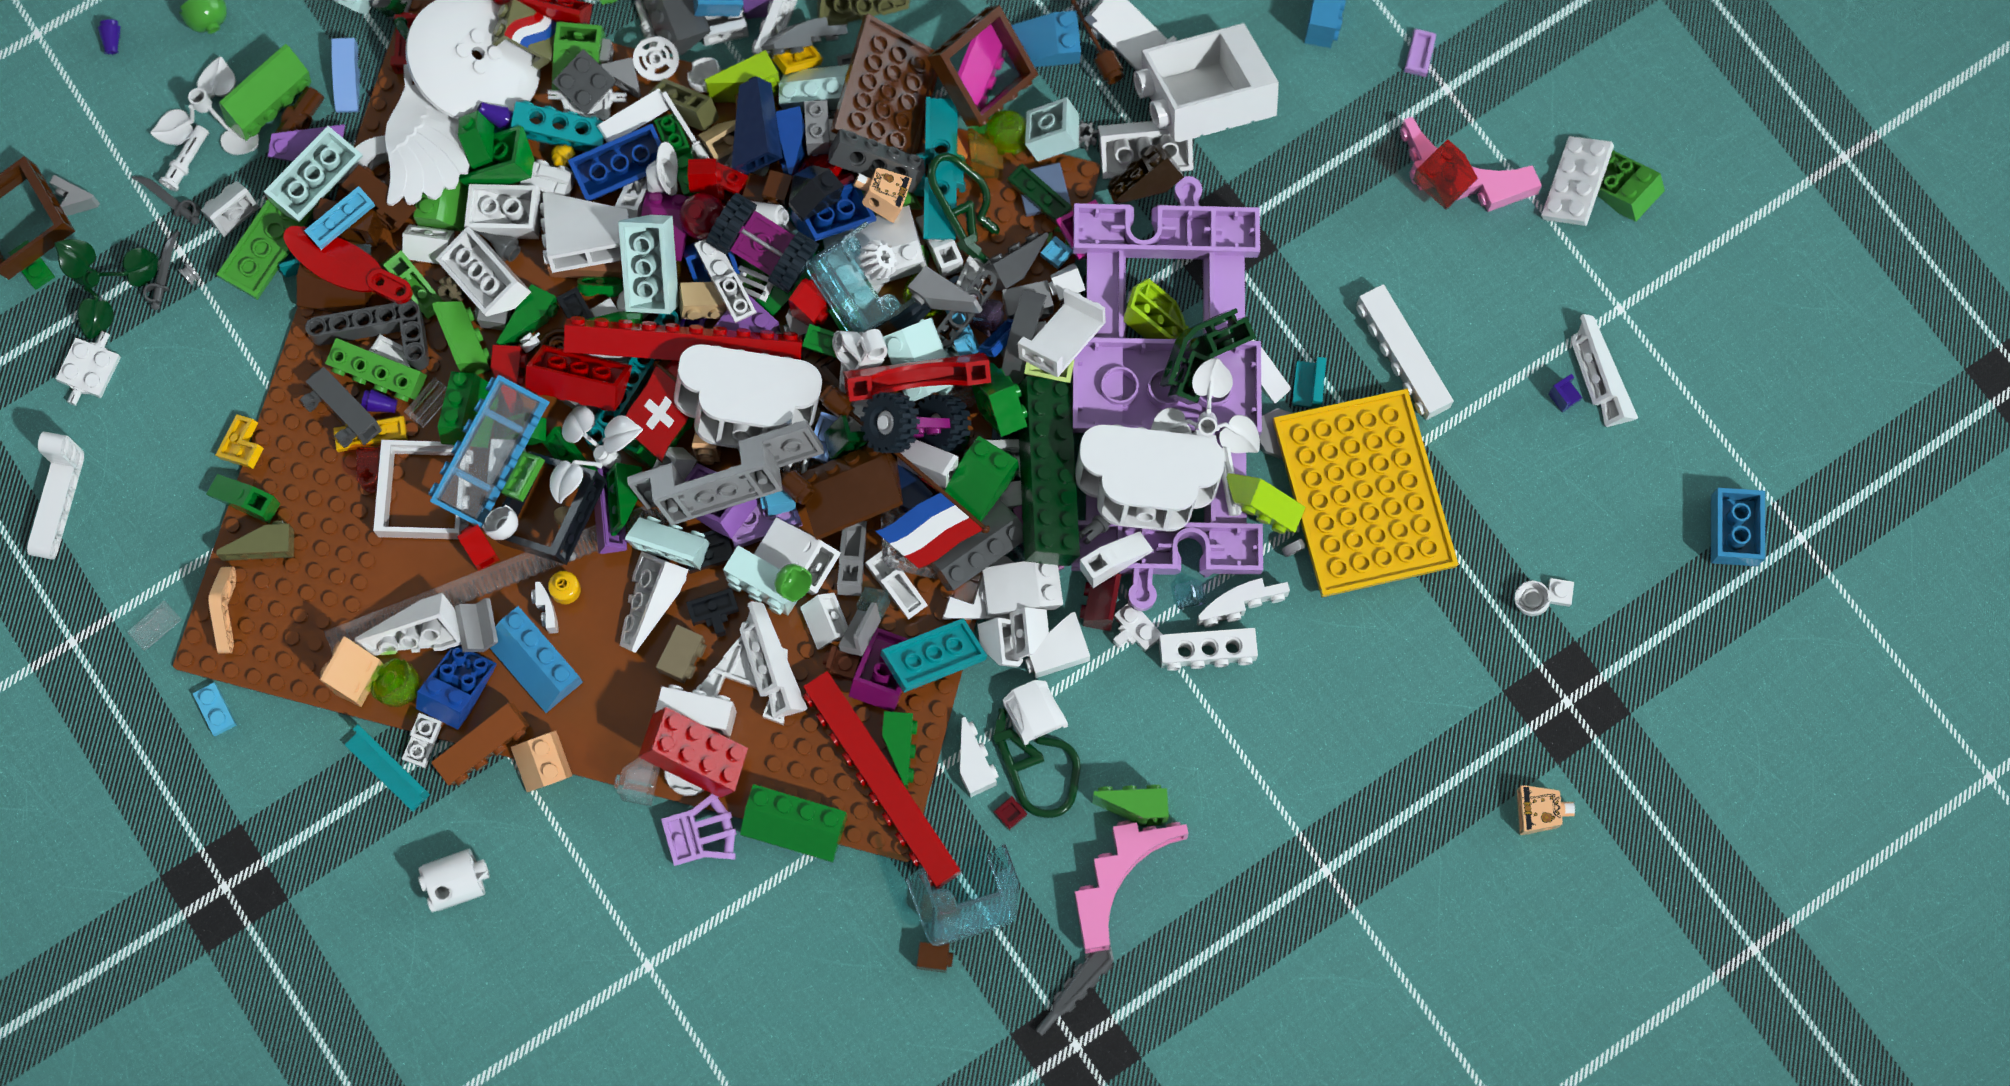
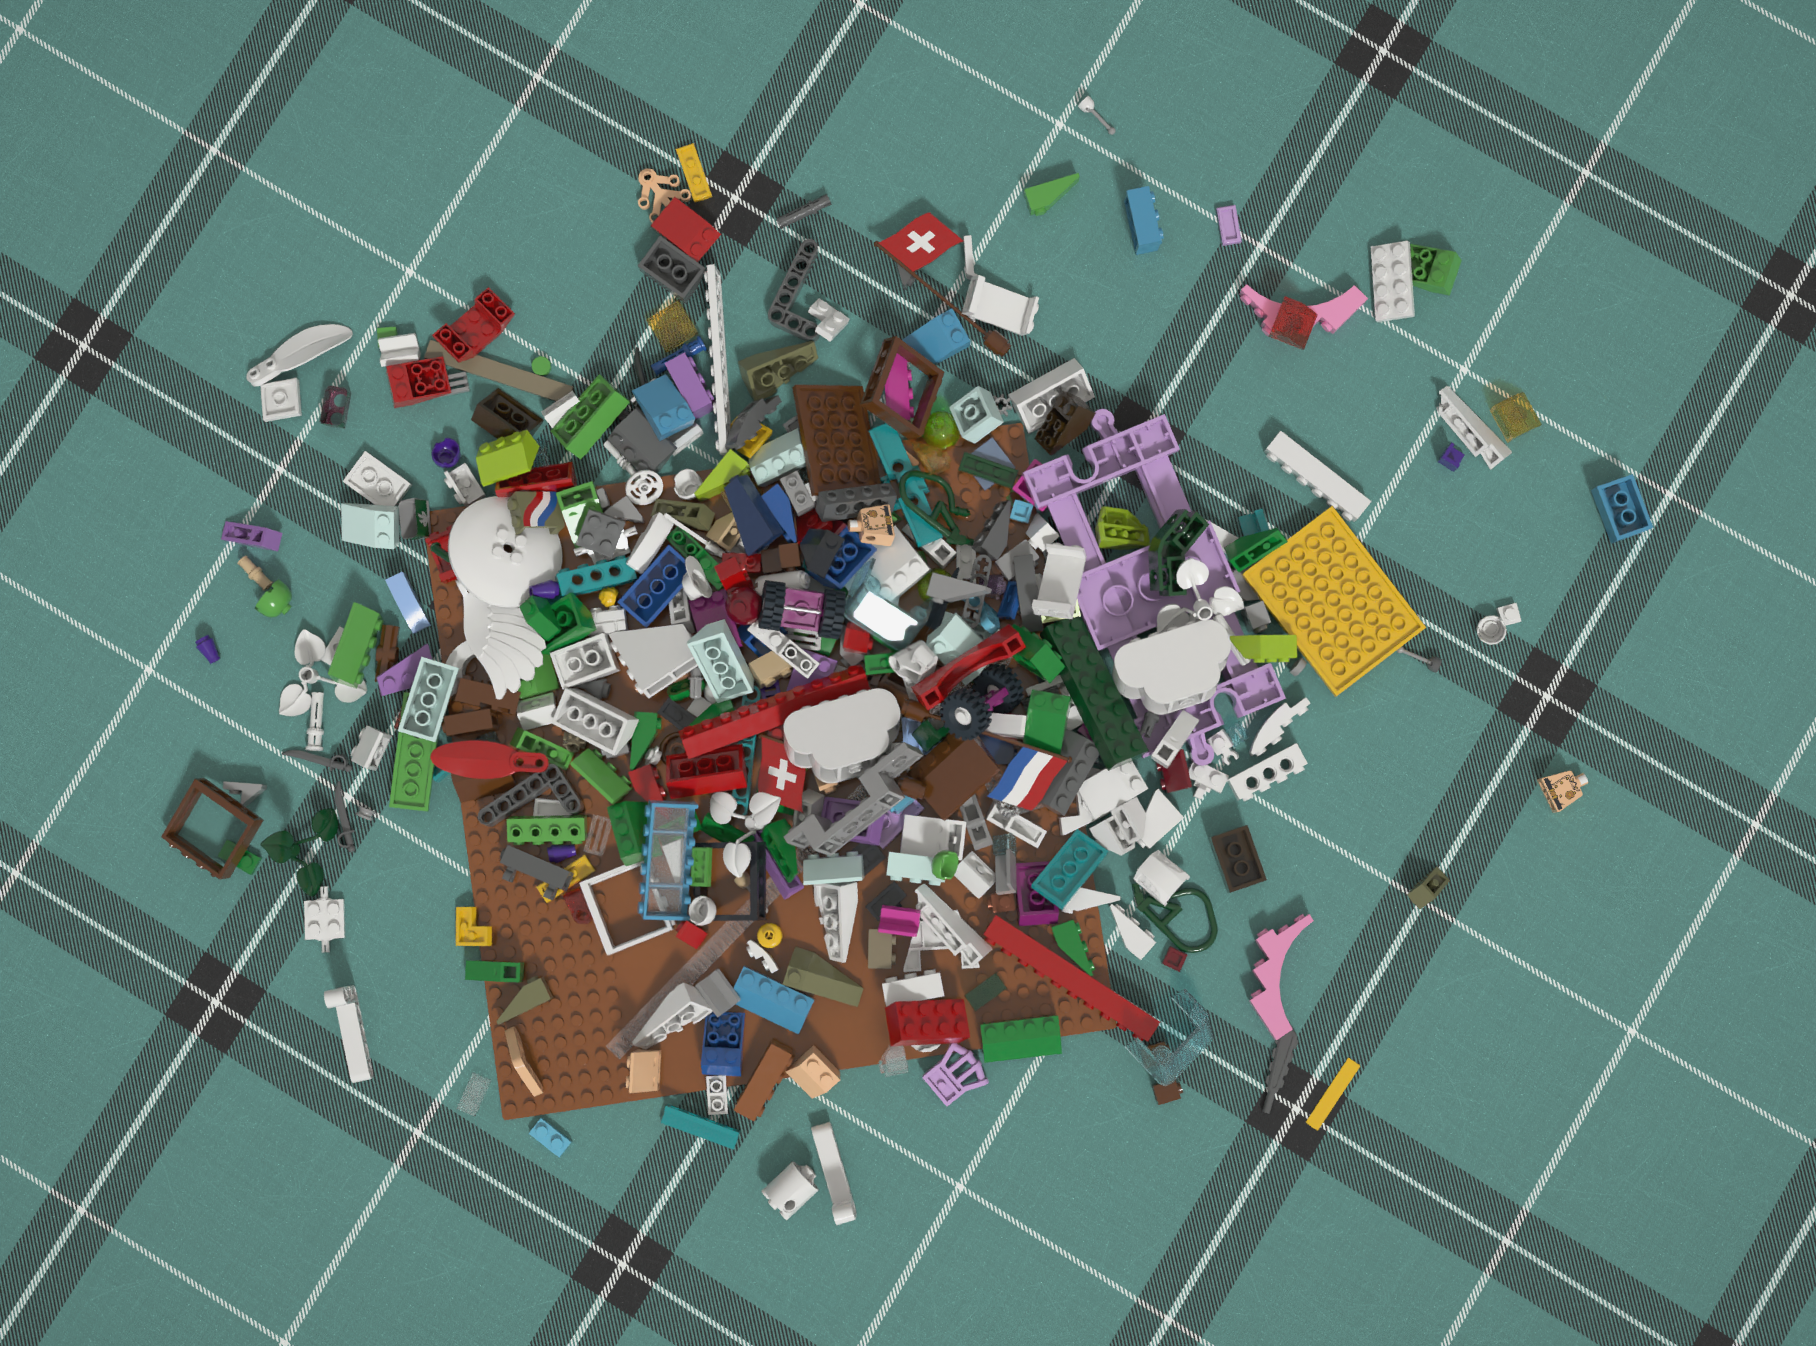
camera: 15 degrees left, 10 degrees up
(339, 217) = (467, 727): medium azure plate -> none
(396, 683) = (679, 1063): clear neon green cylinder -> none
(505, 921) = (843, 1204): none -> white beam
(595, 656) = (816, 976): none -> olive wedge
(611, 280) = (695, 683): none -> light grey axle
(716, 629) = (899, 921): none -> dark pink panel
(777, 753) = (985, 991): none -> clear green panel
(877, 260) = (897, 586): white gear -> none
(939, 699) = (1088, 898): none -> white slope
(1126, 1046) = (1333, 1094): none -> yellow sticker
(1131, 728) = (1237, 859): none -> dark brown brick
(1139, 806) = (1274, 914): bright green slope -> none
(1169, 597) = (1221, 744): none -> white plate
(1207, 83) = (1081, 328): white brick -> none
(1269, 466) = (1255, 617): none -> light grey brick
(1299, 393) = (1253, 547): none -> green slope
(1338, 855) = (1428, 888): none -> olive slope
(1450, 608) = (1432, 663): none -> hinge
(1656, 379) = (1515, 416): none -> clear yellow slope

